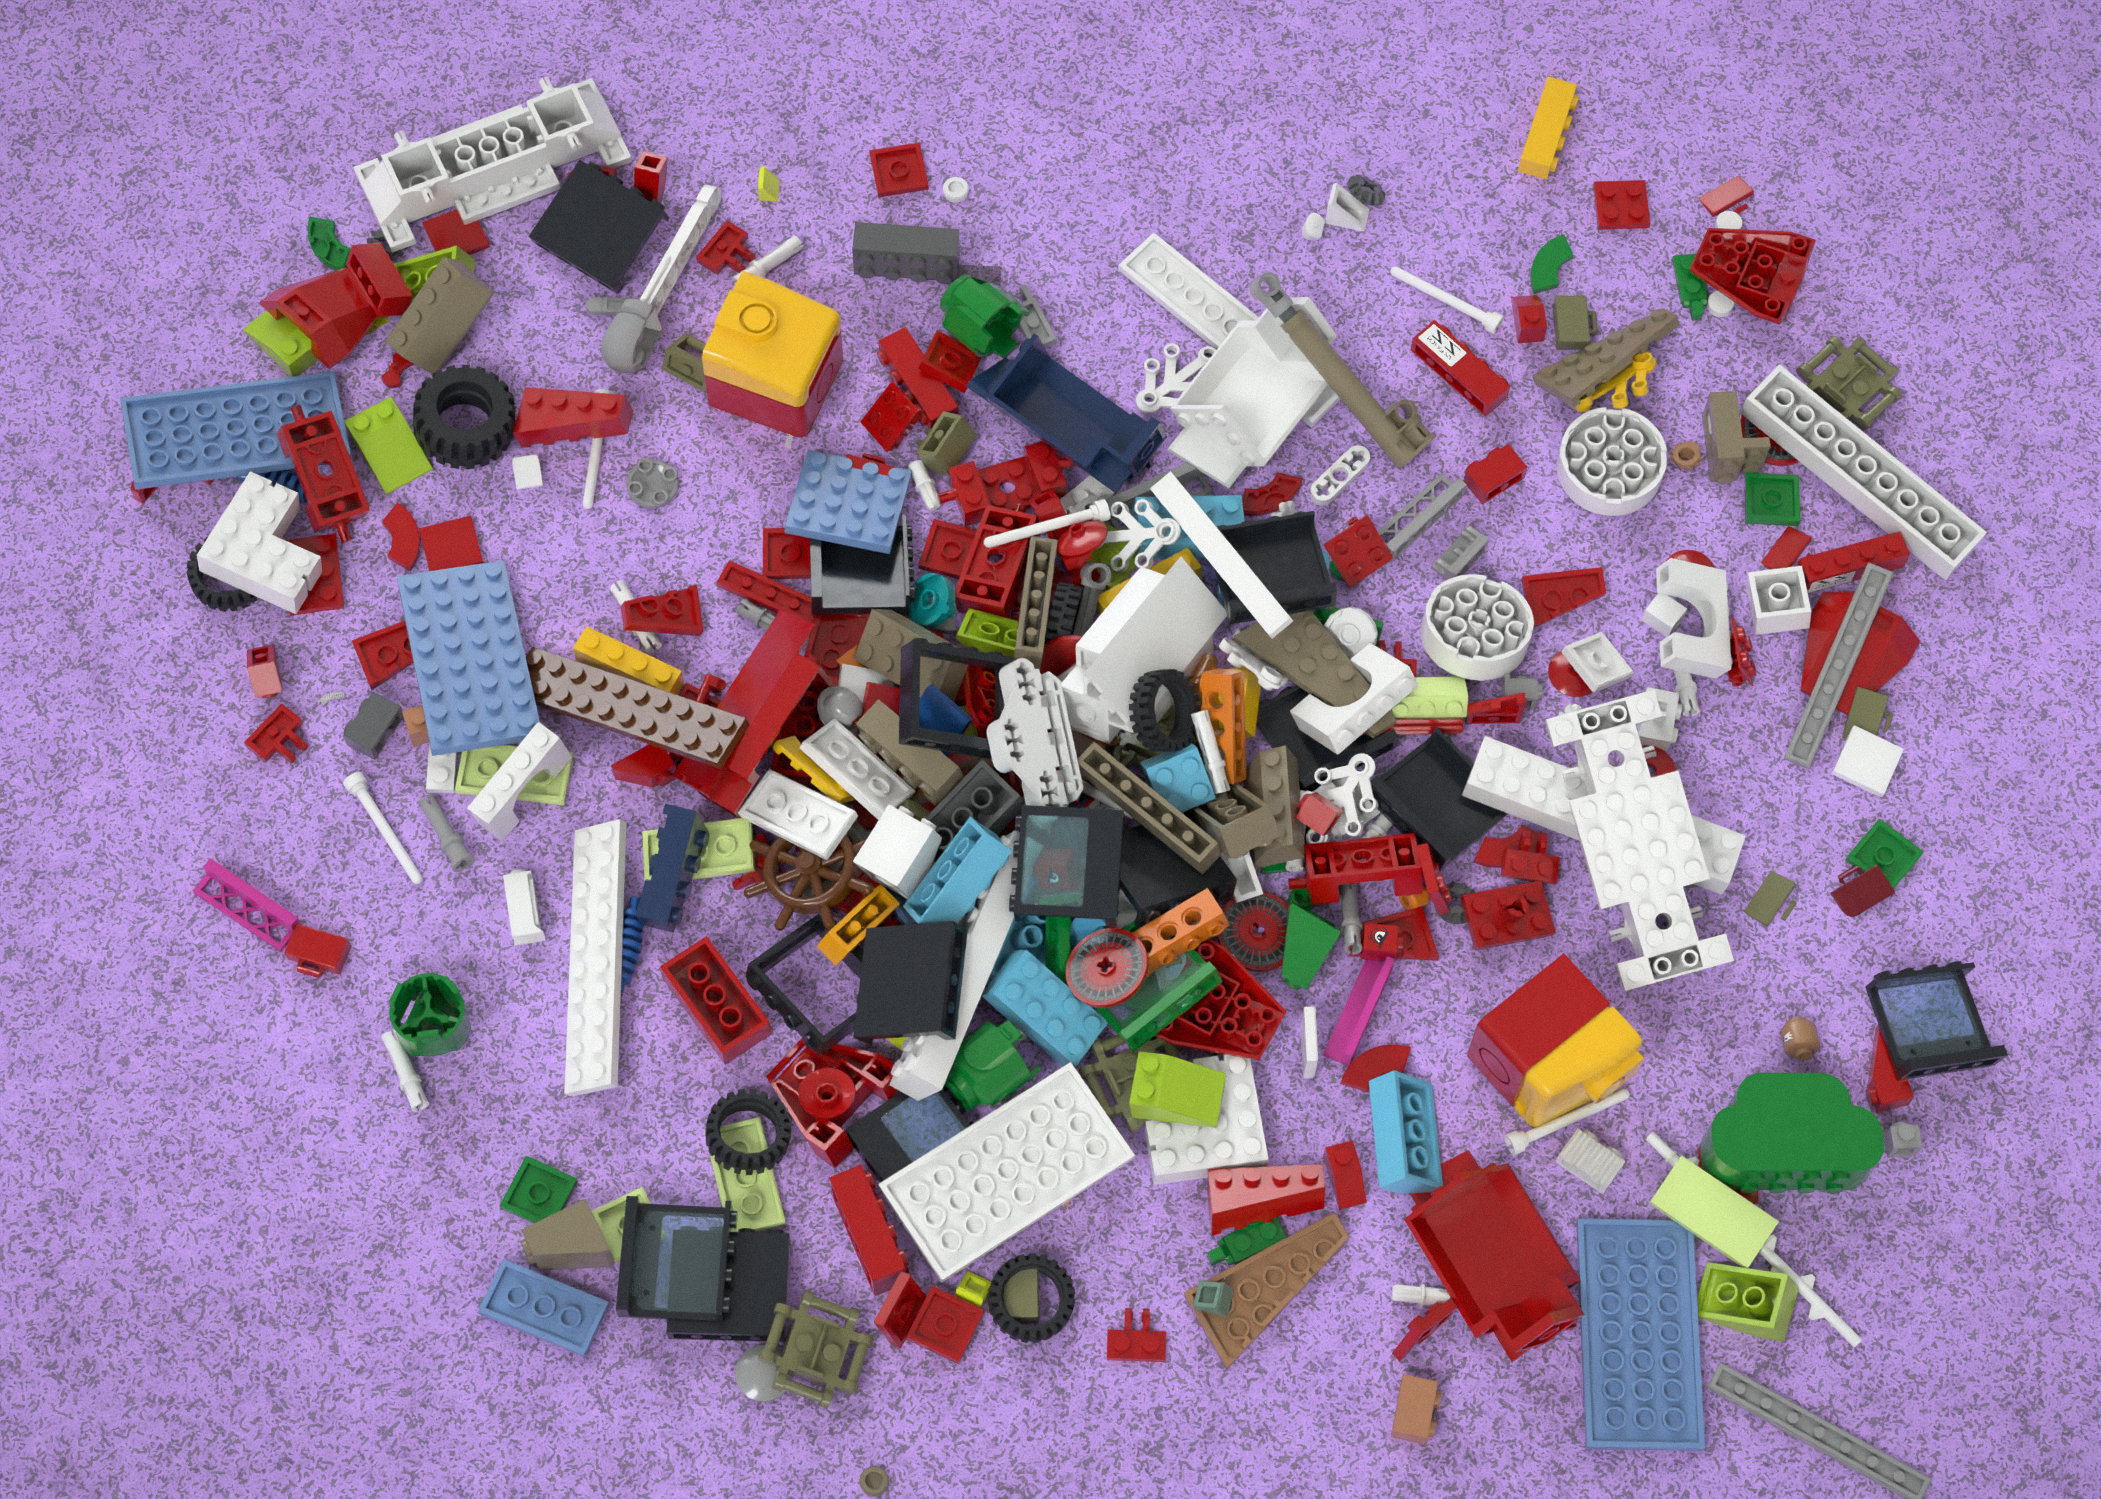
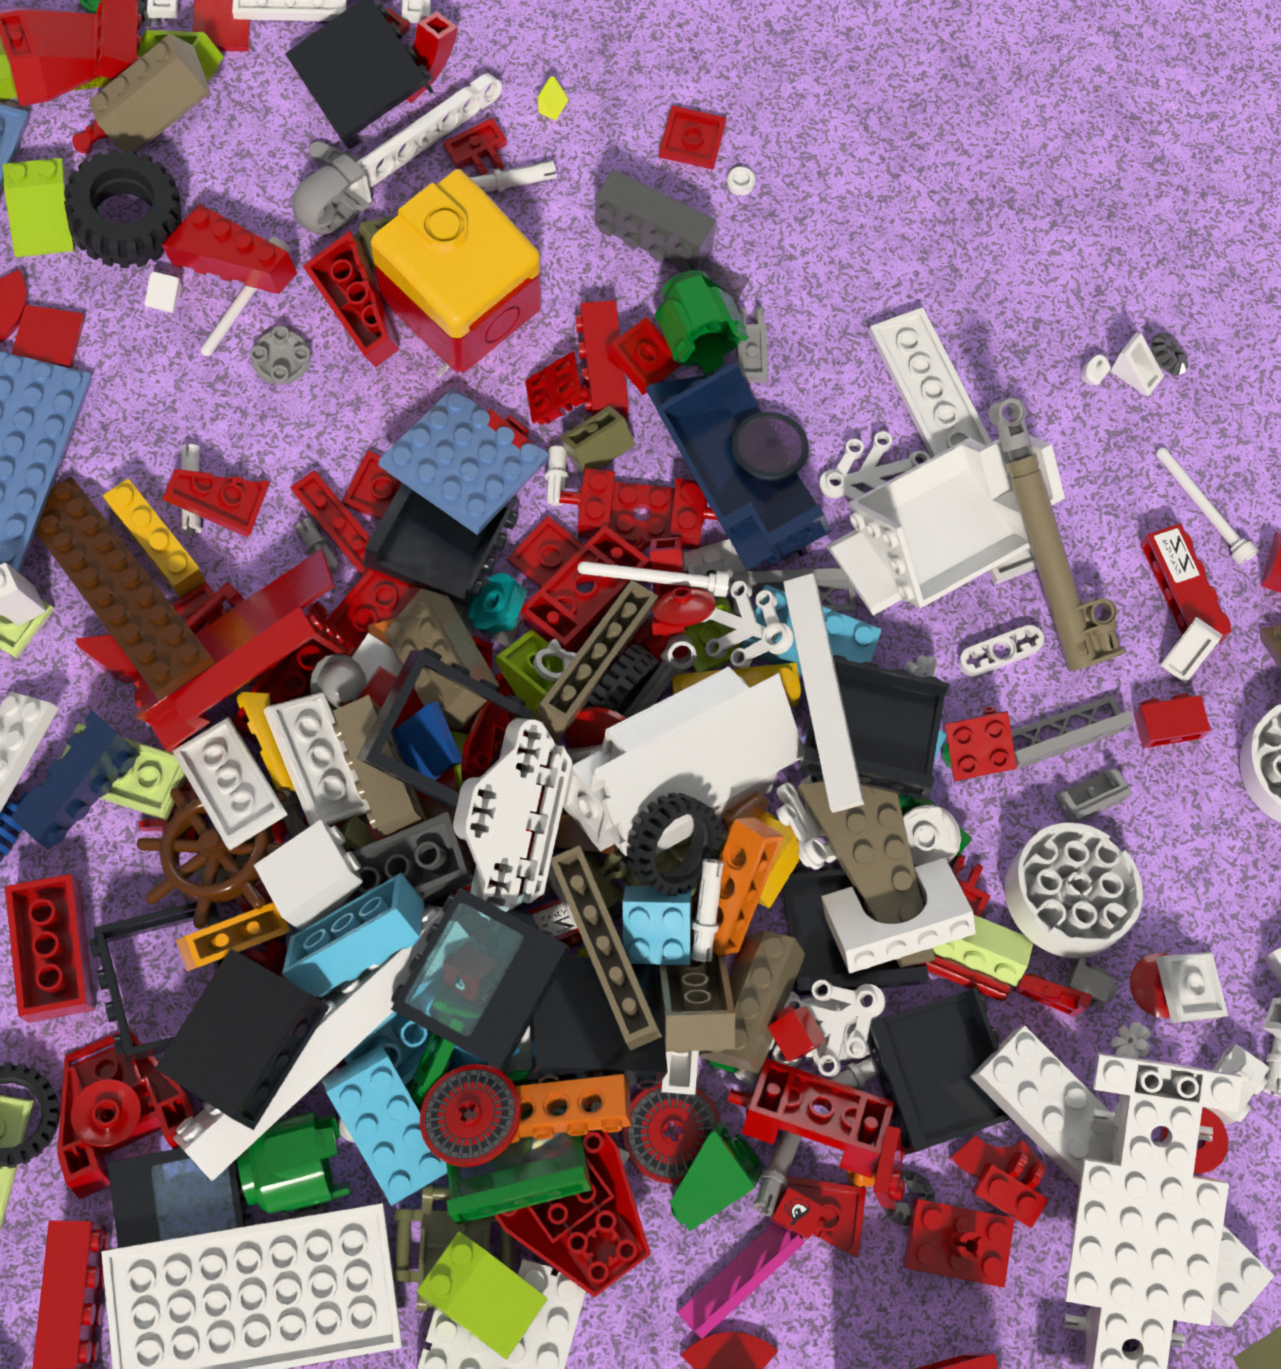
camera: 20 degrees right, 5 degrees up
(689, 410) = (351, 291): none -> red wedge
(995, 614) = (553, 649): none -> white piece
(1095, 403) = (769, 463): none -> clear purple wheel
(1267, 498) = (912, 643): red tile -> none
(1300, 897) = (733, 1117): green tile -> none
(1309, 1042) = (663, 1297): white tile -> none
(1485, 413) = (1191, 650): none -> white tile
(1561, 592) = (1184, 887): red wing -> none

